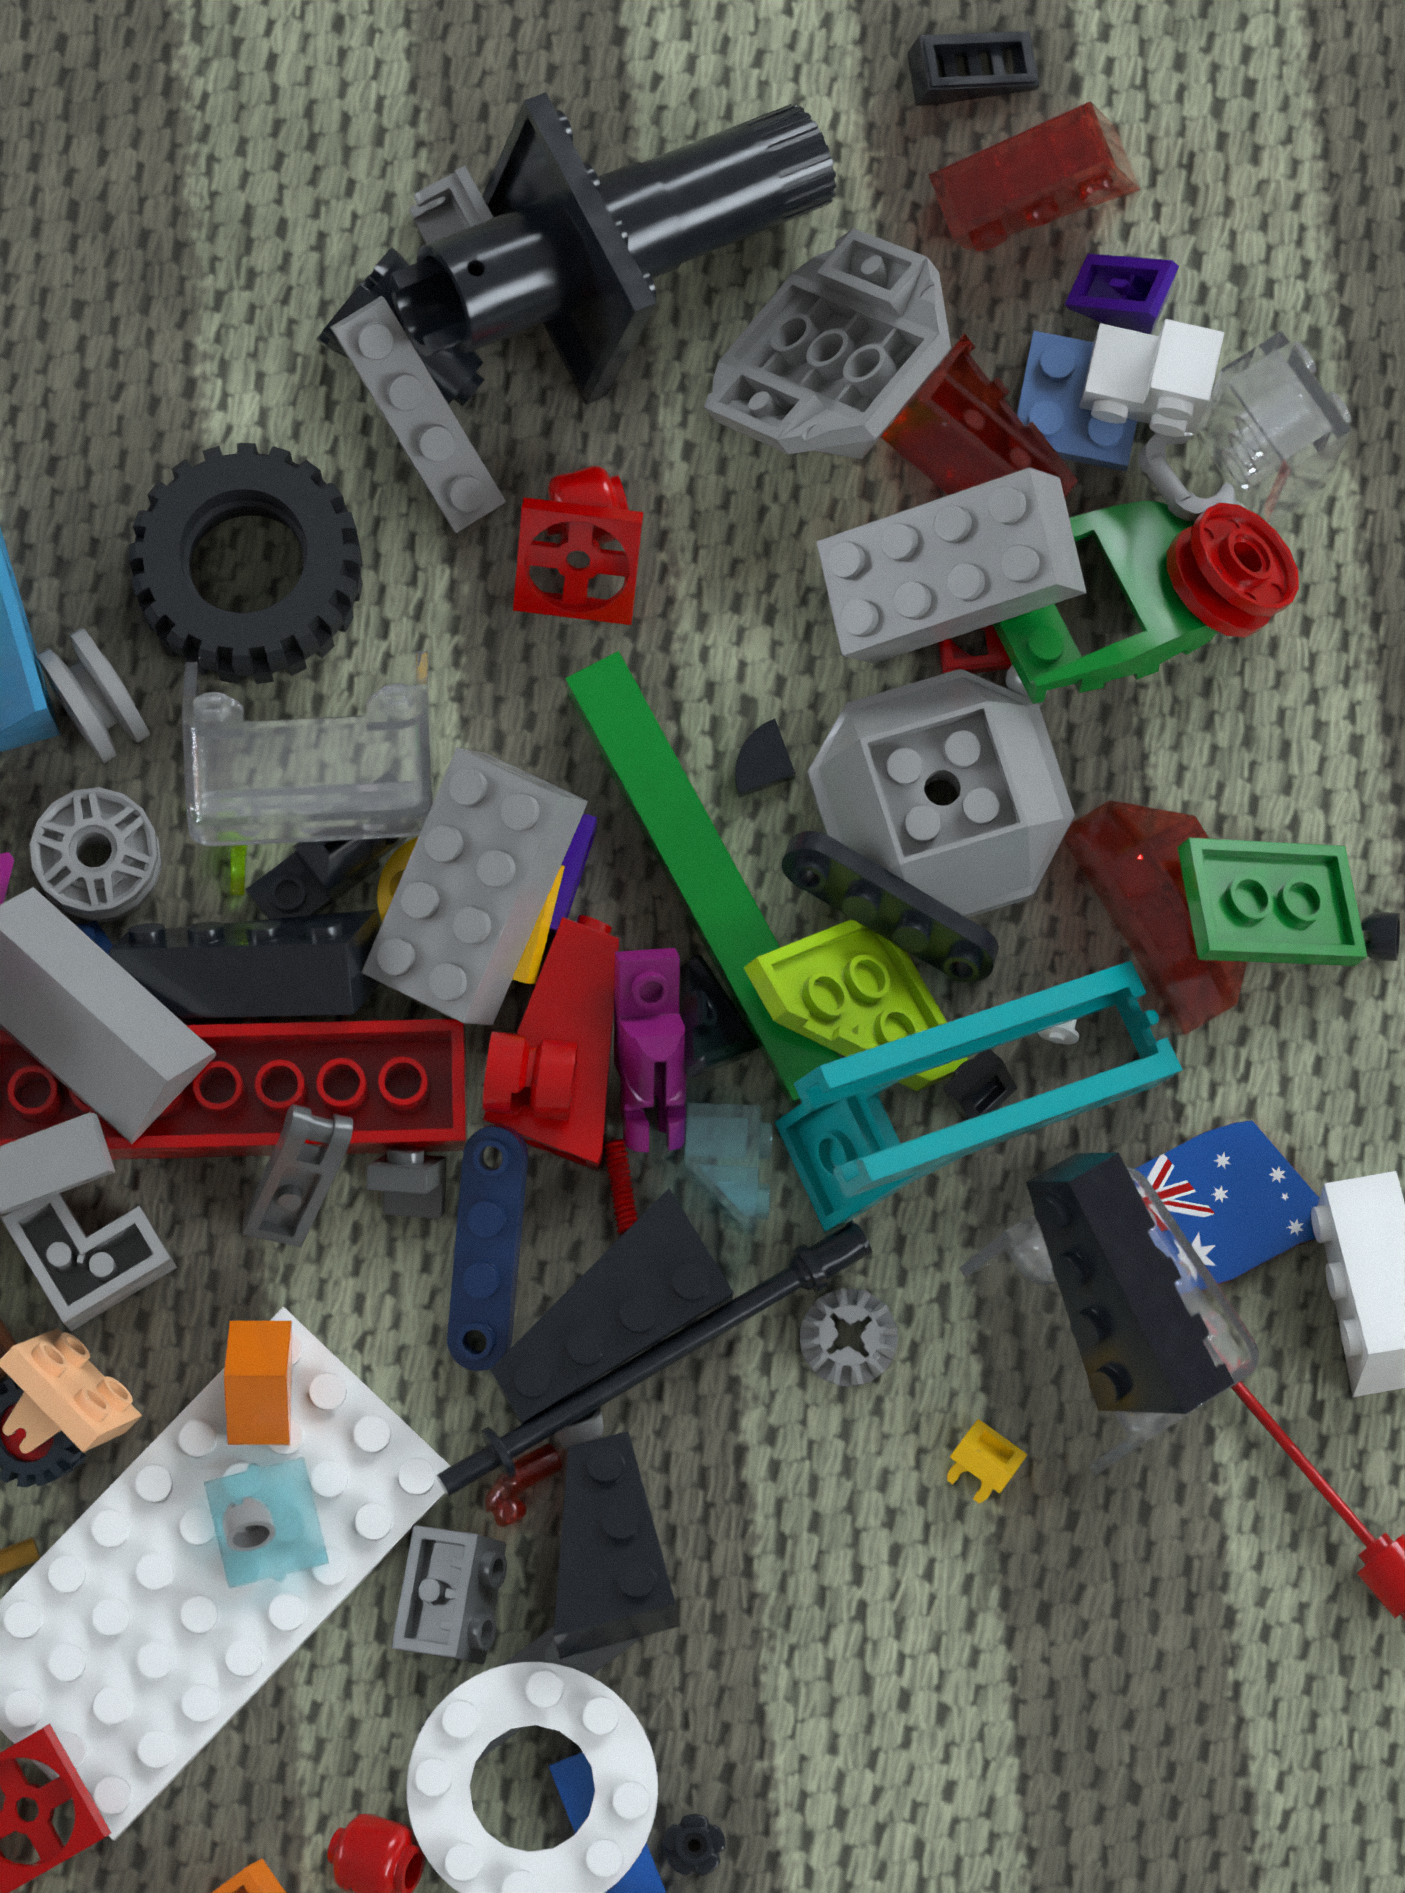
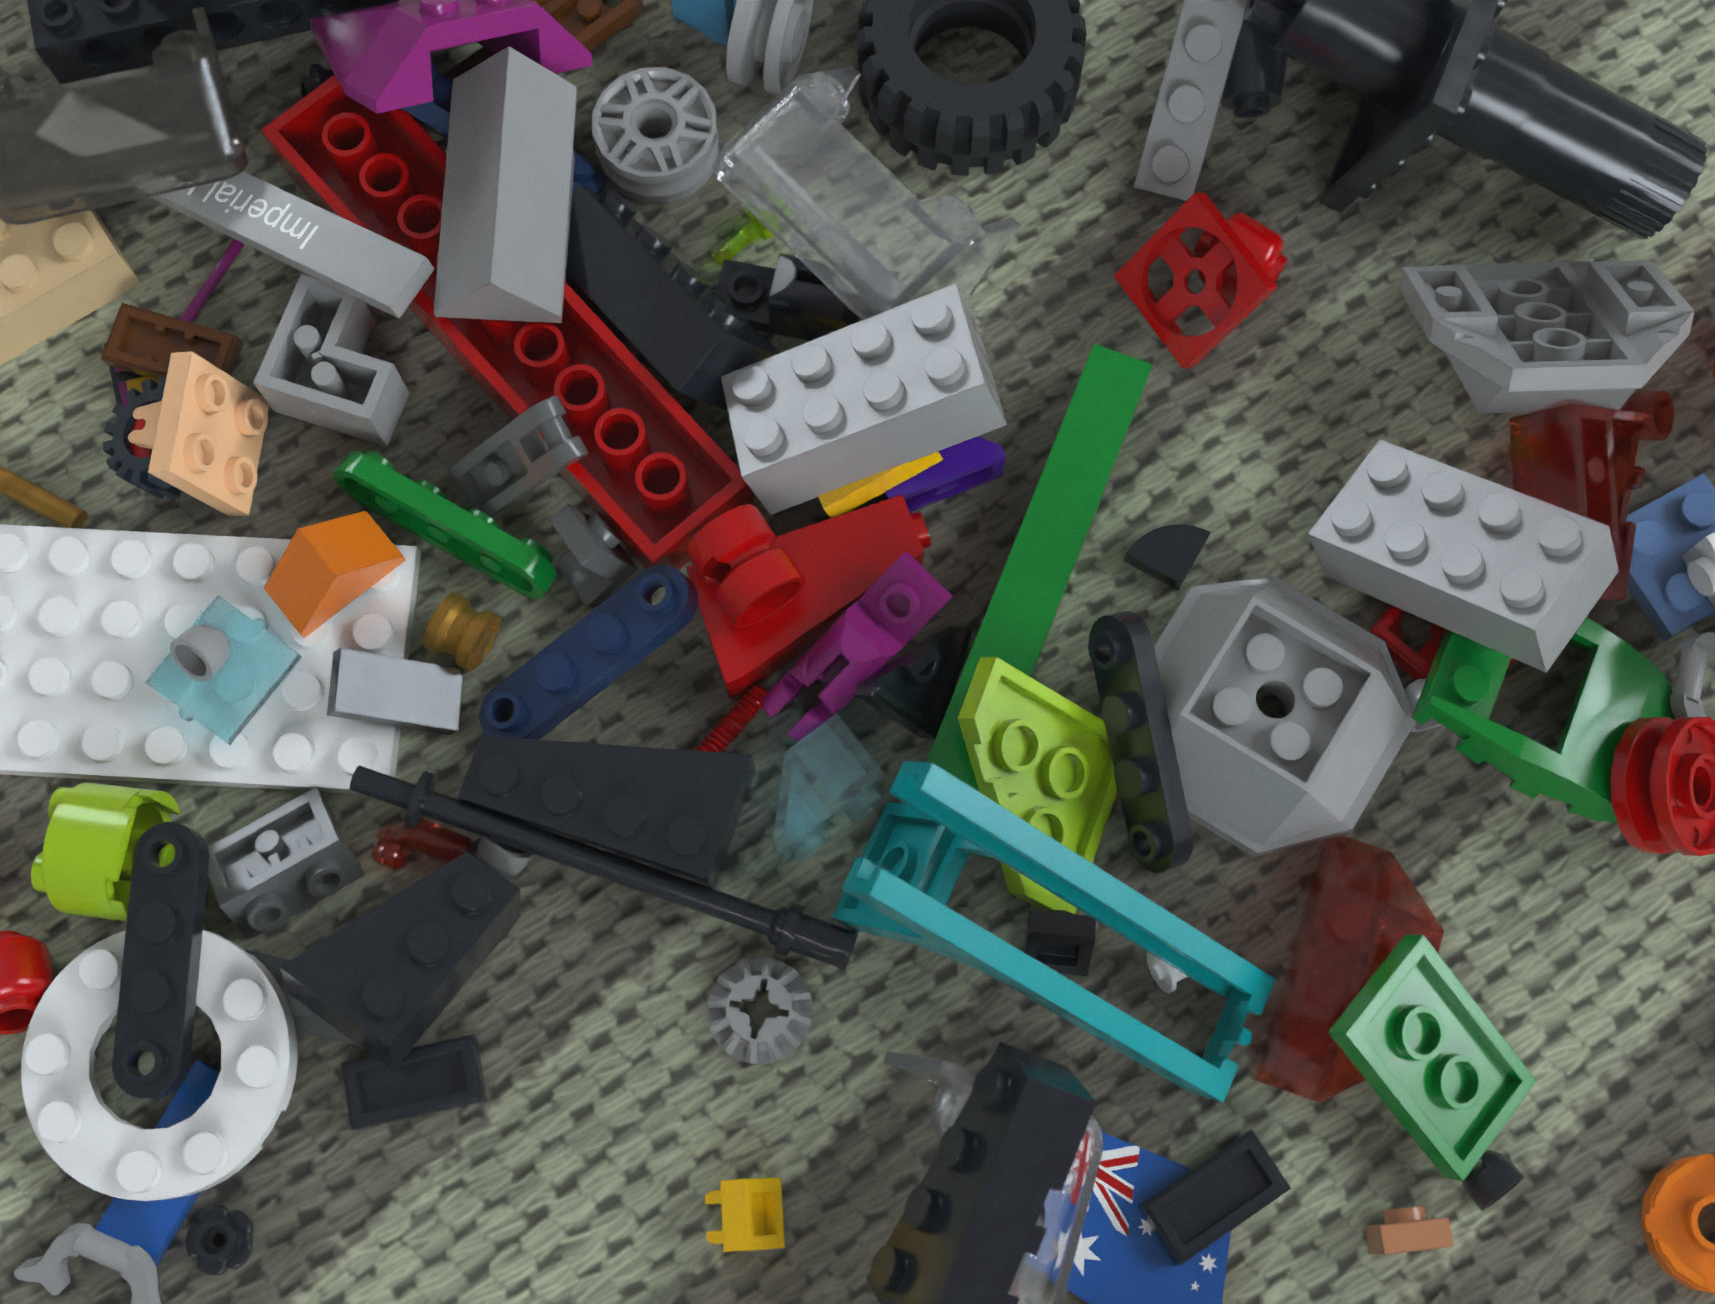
camera: 55 degrees right, 5 degrees down
(266, 1278) = (460, 533): none -> green plate
(344, 1708) = (93, 845): none -> lime brick
(384, 1324) = (462, 631): none -> pearl gold wheel
(393, 1408) = (395, 691): none -> tile
(468, 1722) = (161, 961): none -> black plate
(704, 1608) = (424, 1083): none -> black tile
(964, 319) = (1657, 404): none -> clear red hinge
(1238, 1132) = (1214, 1197): none -> black tile
(1368, 1021) = (1407, 1231): none -> nougat plate

